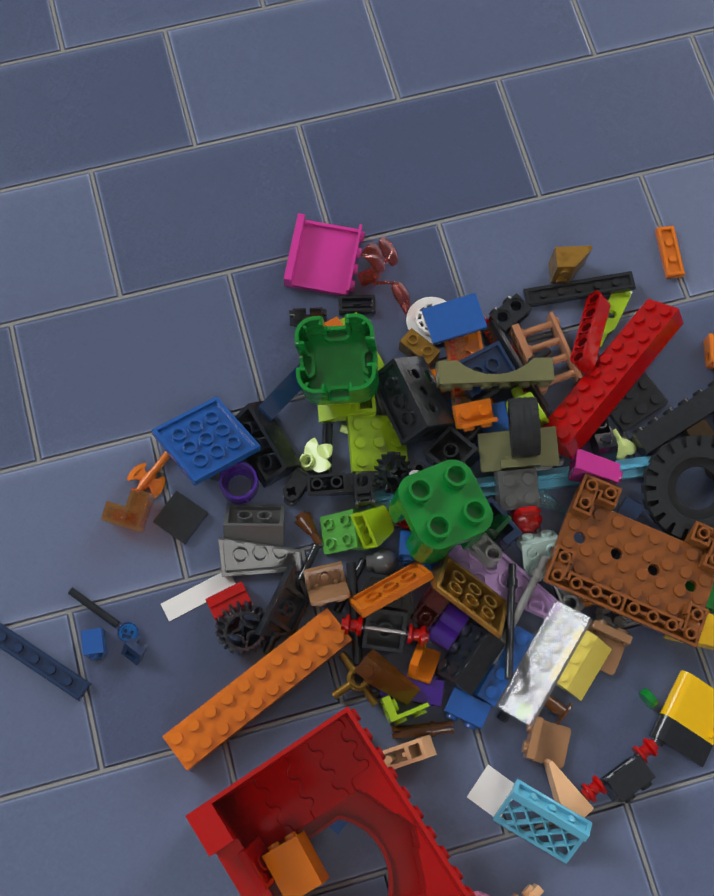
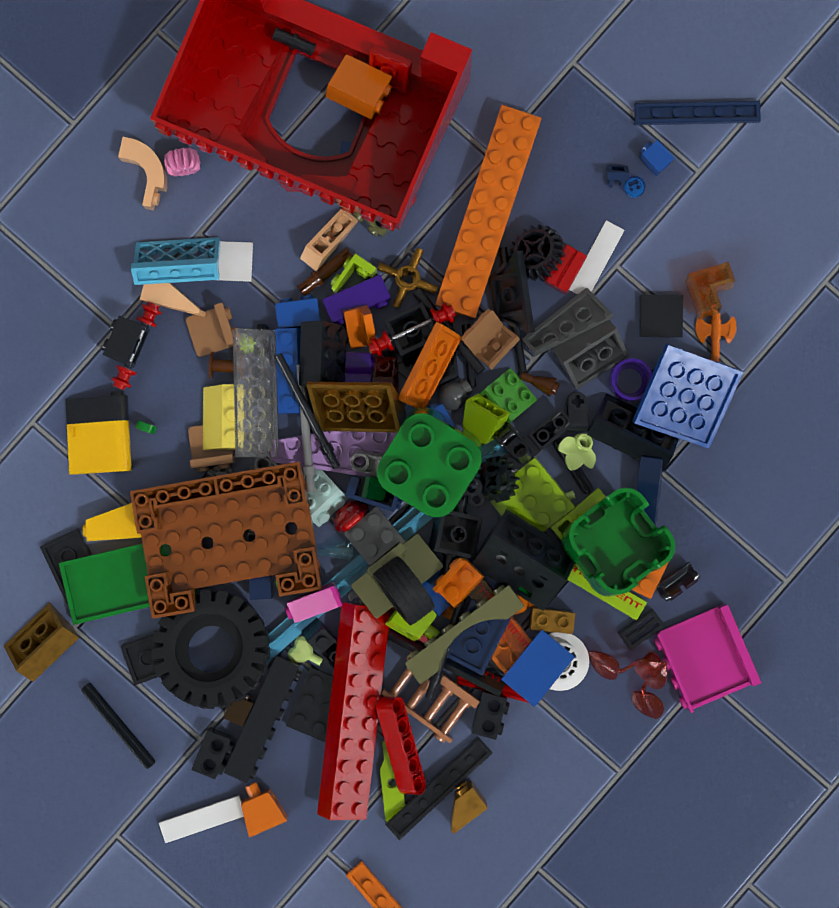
camera: 150 degrees right, 15 degrees up
(93, 607) = (691, 188): black bar -> none
(386, 677) = (384, 289): reddish brown slope -> none

